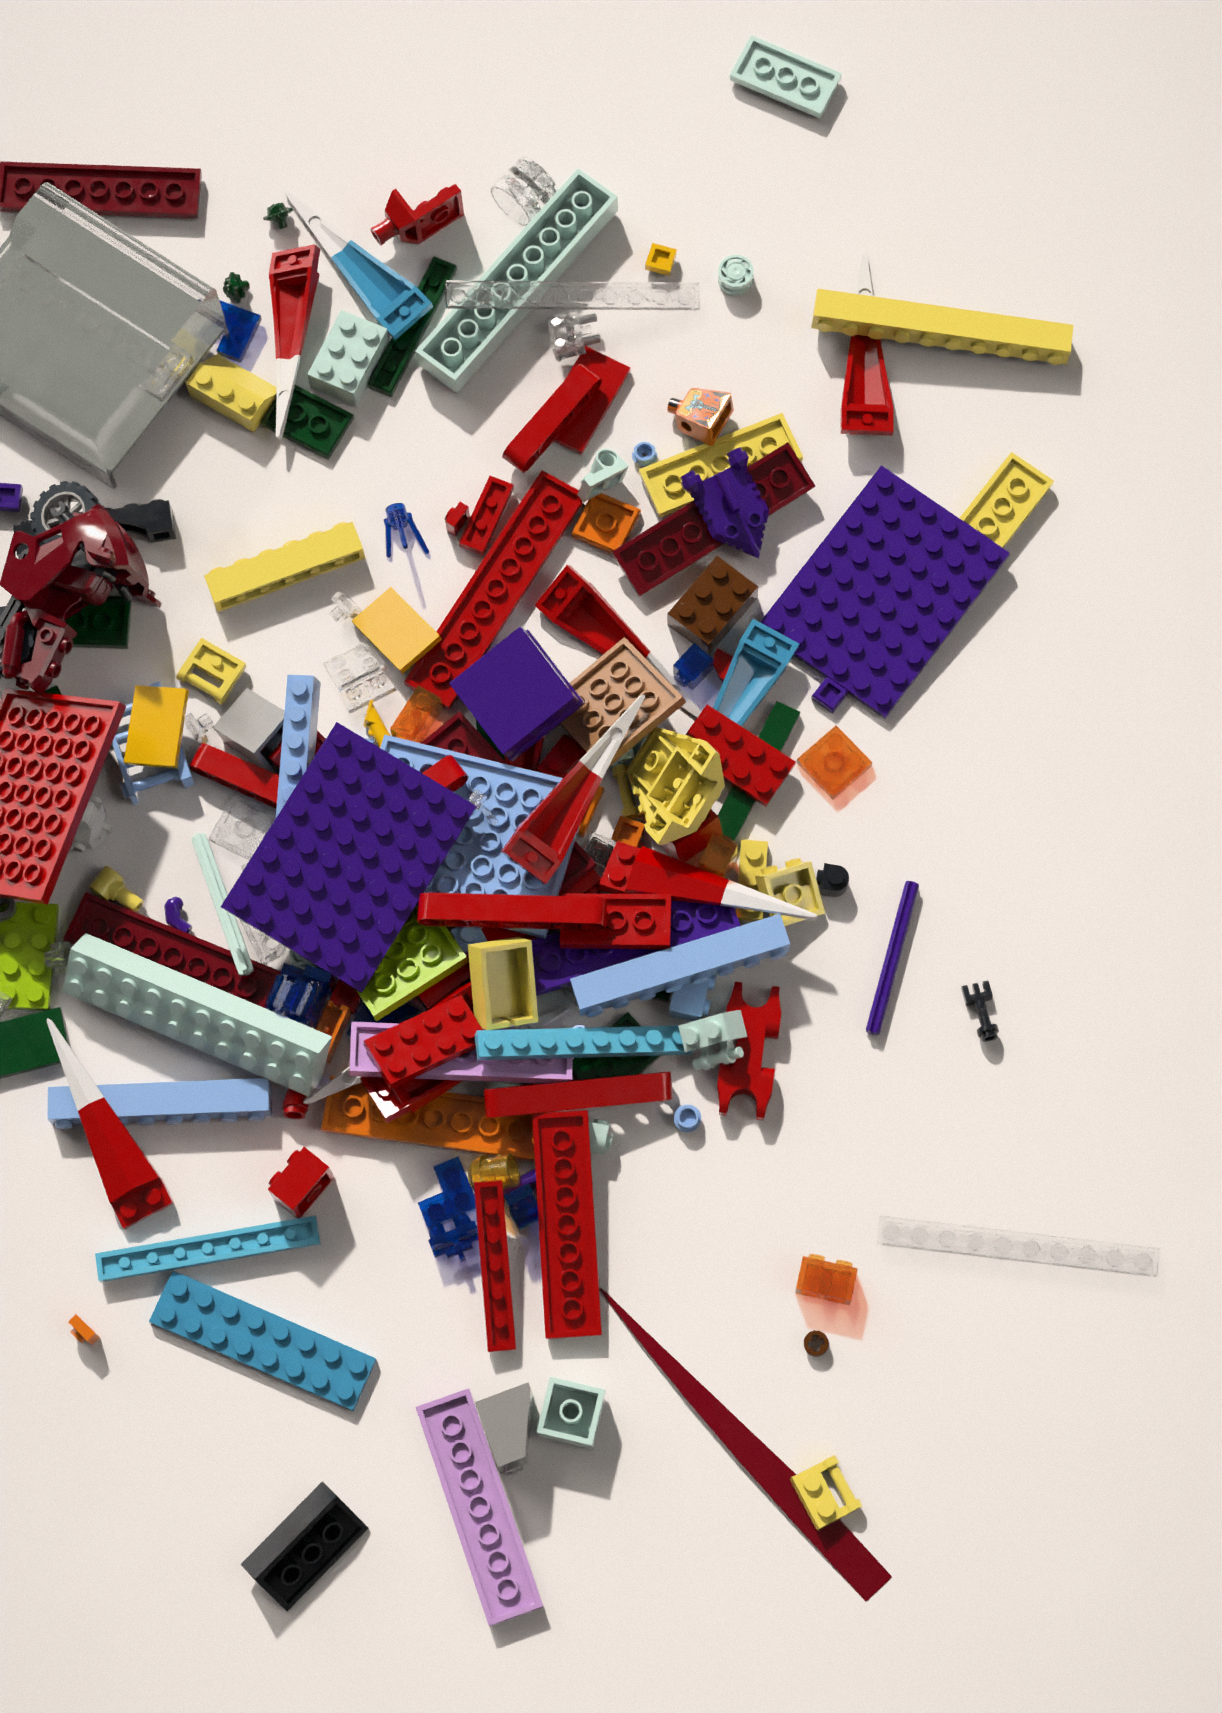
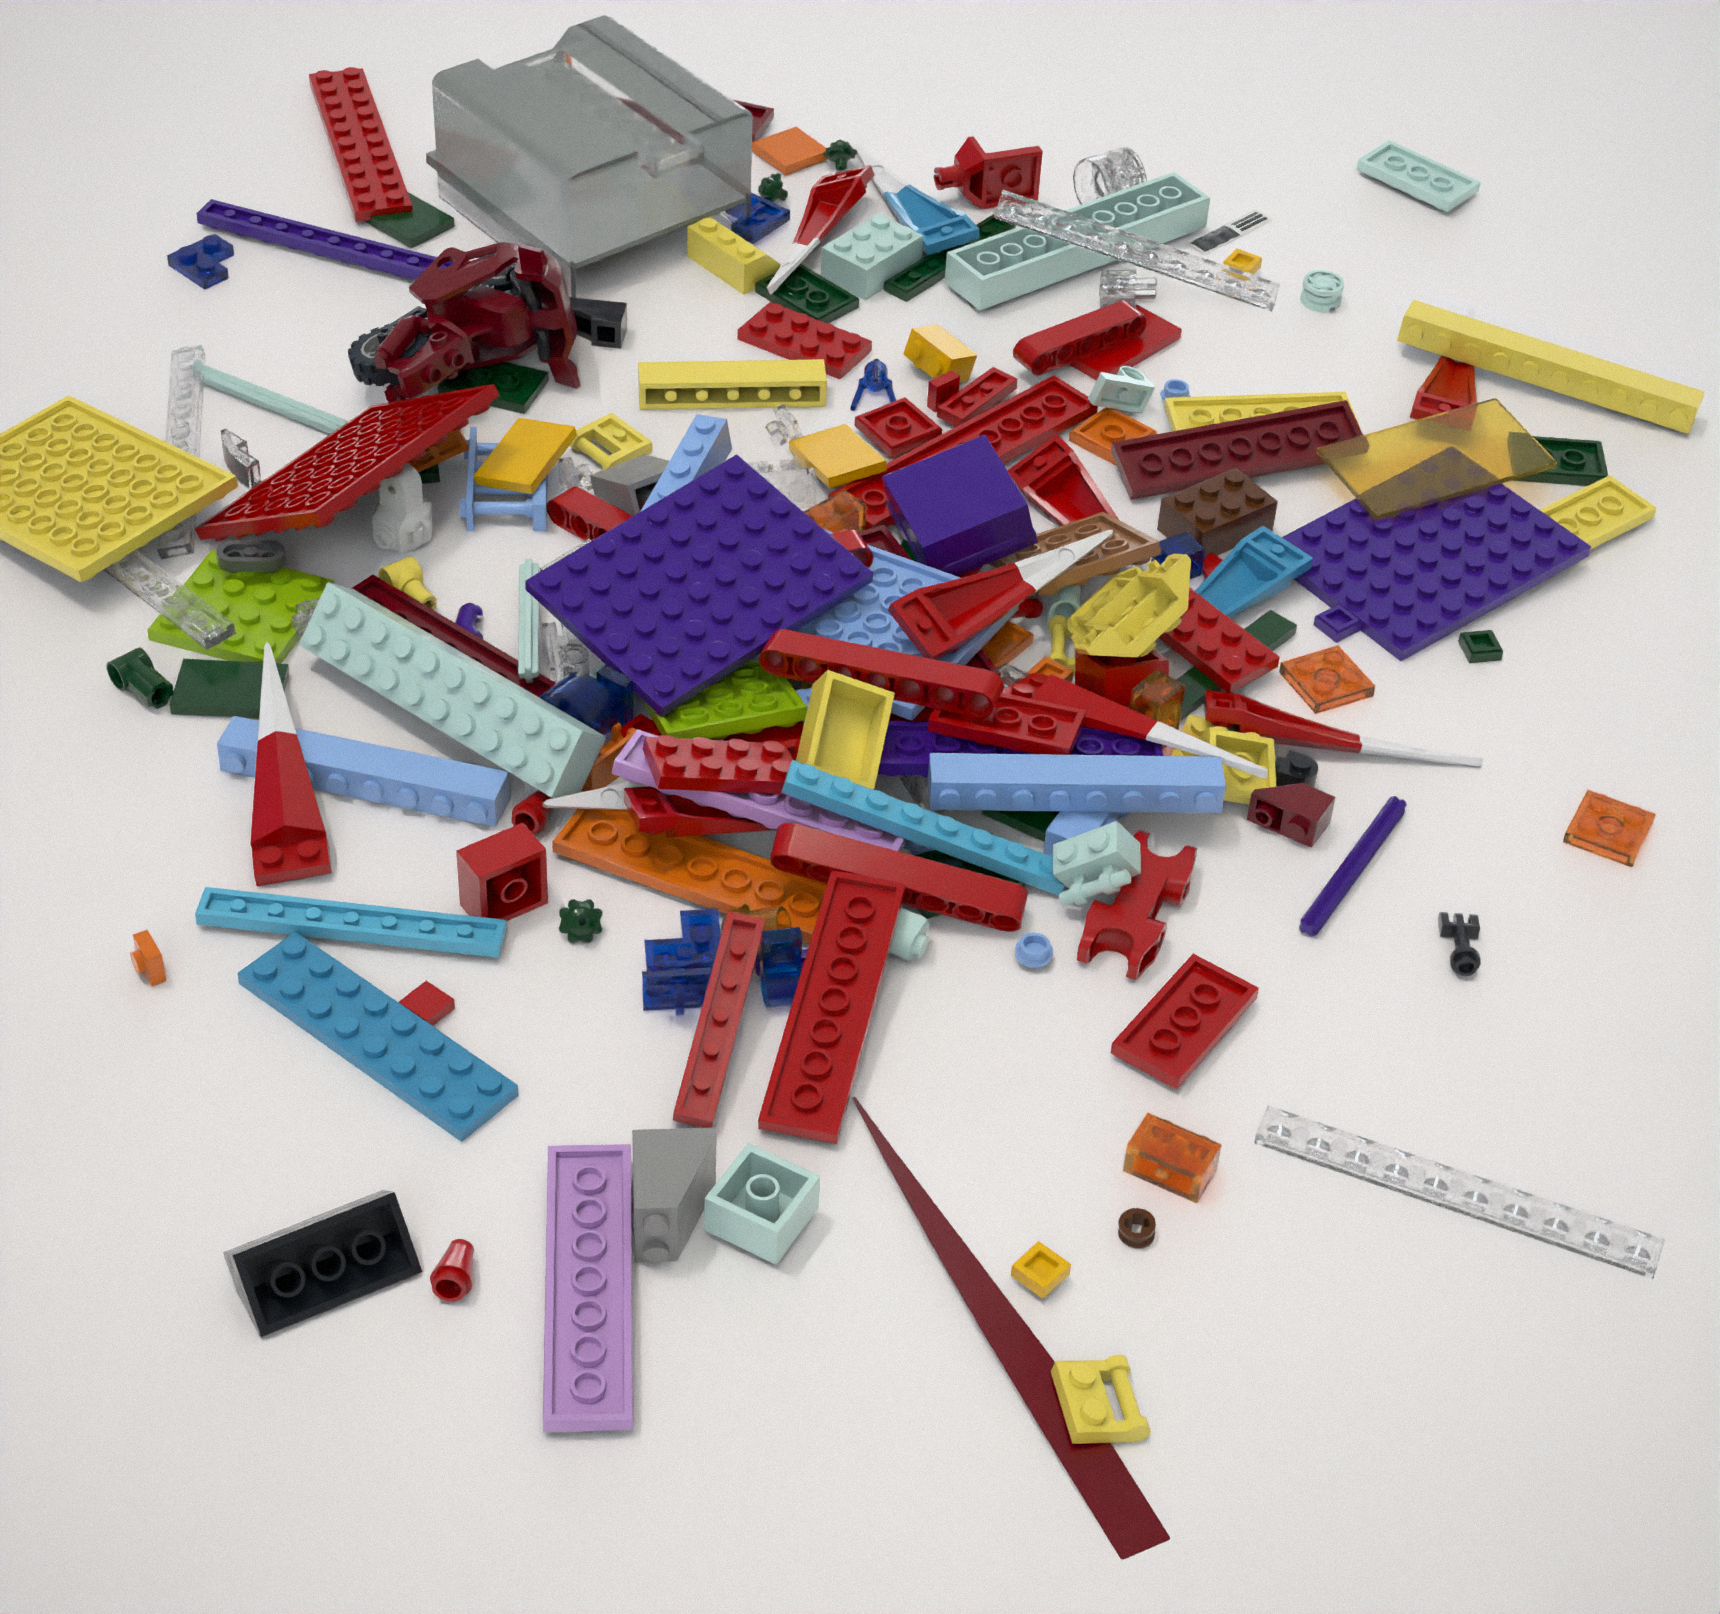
camera: 10 degrees right, 30 degrees down
(231, 218) = (789, 150): none -> orange tile
(287, 1304) = (429, 1003): none -> red tile
(324, 482) = (804, 338): none -> red plate
(366, 1196) = (580, 920): none -> dark green plant
(391, 1528) = (454, 1271): none -> red cone
(433, 574) = (897, 427): none -> red plate
(442, 476) = (939, 352): none -> yellow brick
(478, 798) = (880, 579): clear hand -> none
(638, 206) = (1229, 231): none -> sticker
(702, 413) = (1253, 370): orange torso -> none
(730, 504) = (1264, 431): dark purple shield -> none
(763, 1401) = (1040, 1270): none -> yellow plate
(800, 832) = (1288, 729): none -> red plate
(807, 1151) = (1184, 1021): none -> red plate
(840, 921) = (1292, 811): none -> dark red slope
(872, 487) = (1436, 458): none -> clear yellow piece
(942, 685) = (1480, 646): none -> dark green tile
(966, 436) = (1578, 462): none -> dark green tile
(1068, 857) = (1609, 828): none -> clear orange plate

